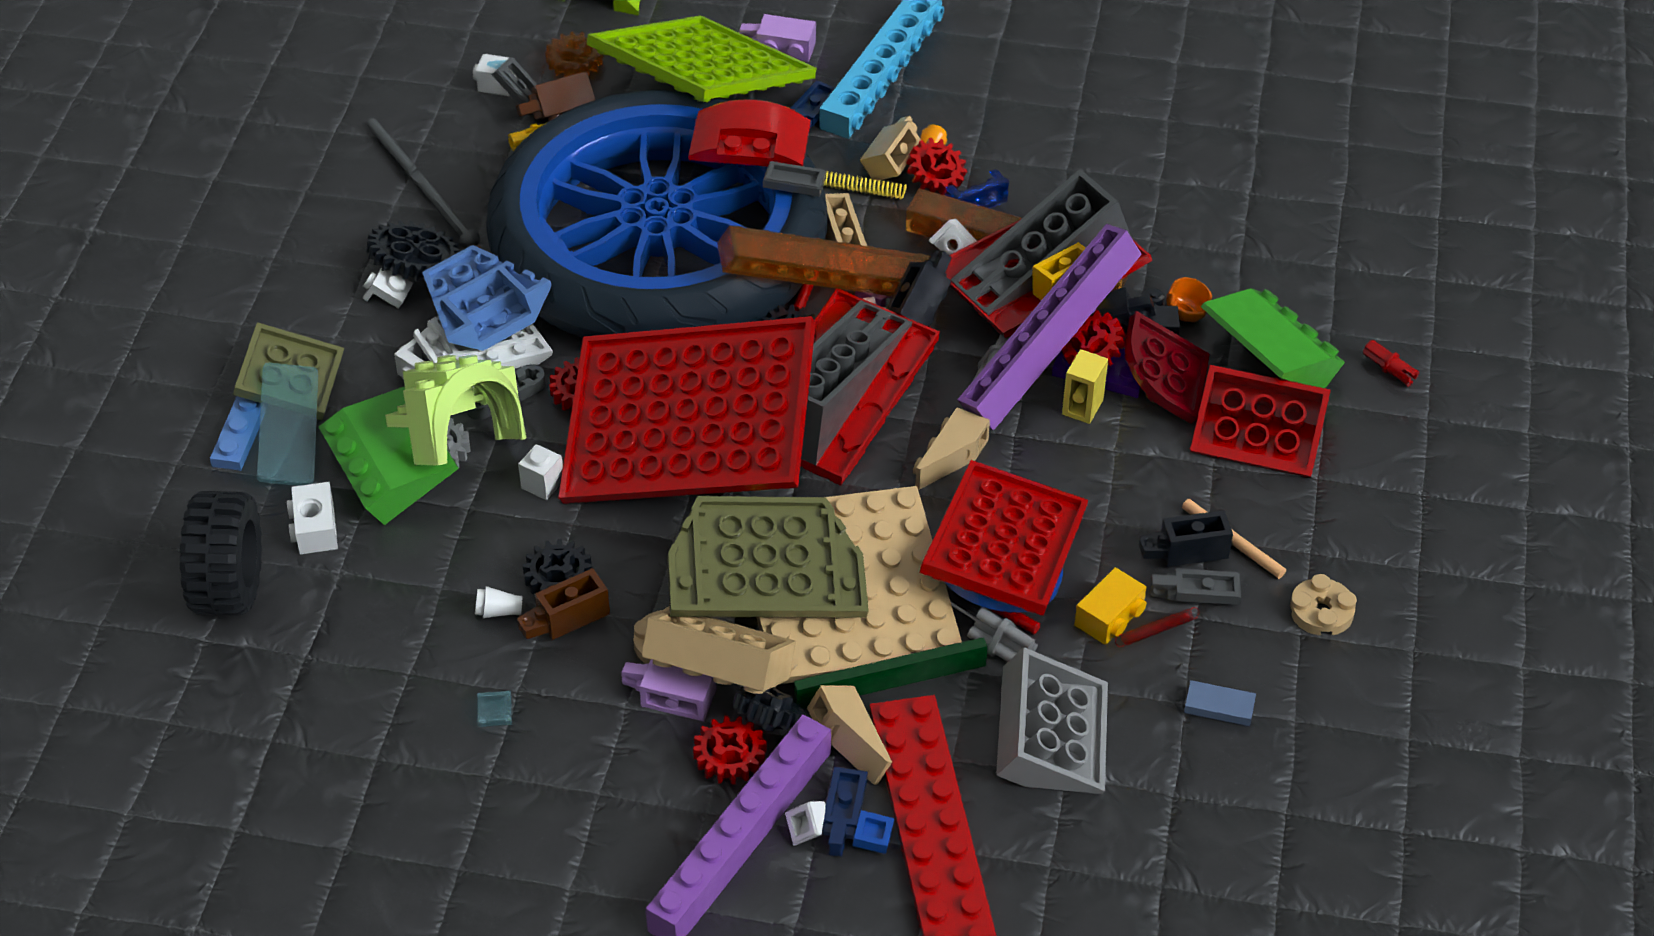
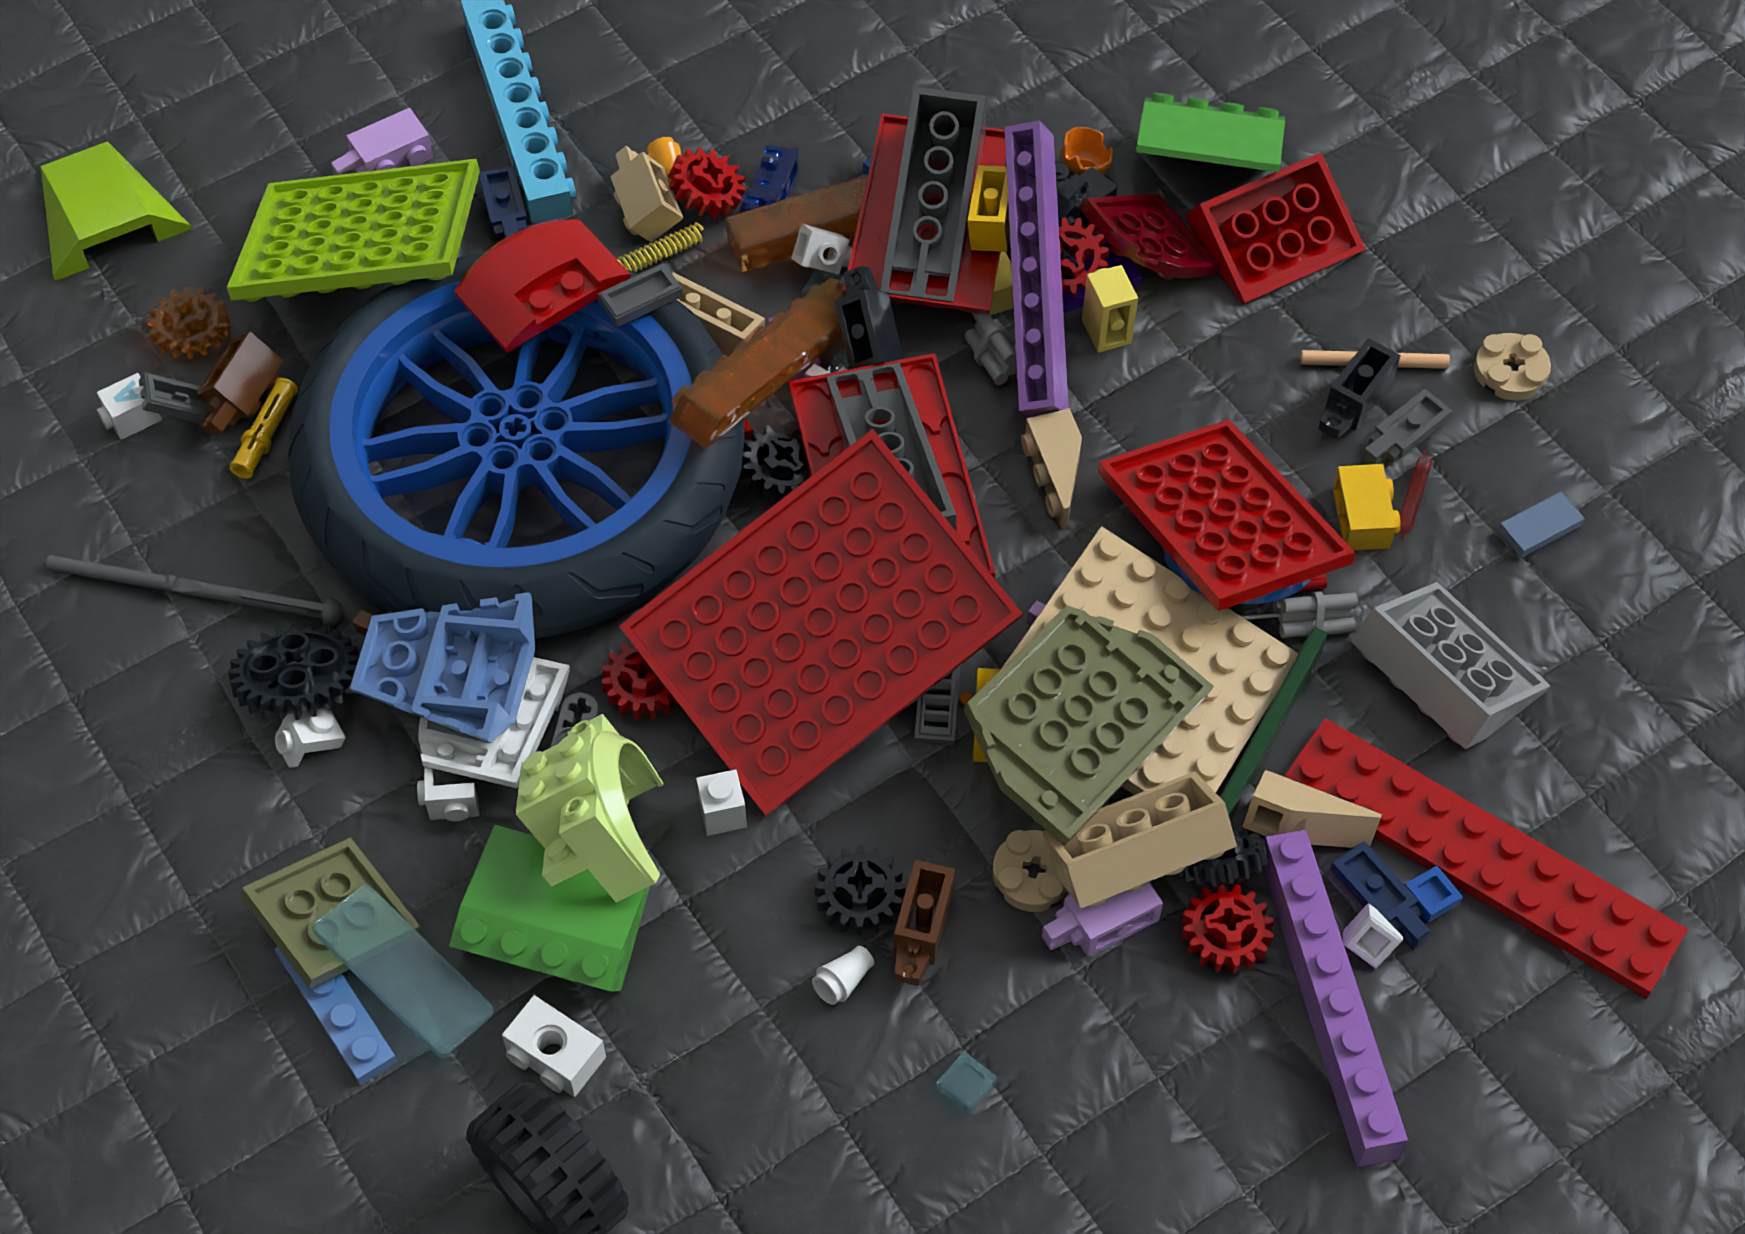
camera: 45 degrees left, 10 degrees up
(1390, 362) = (1307, 89): red axle -> none

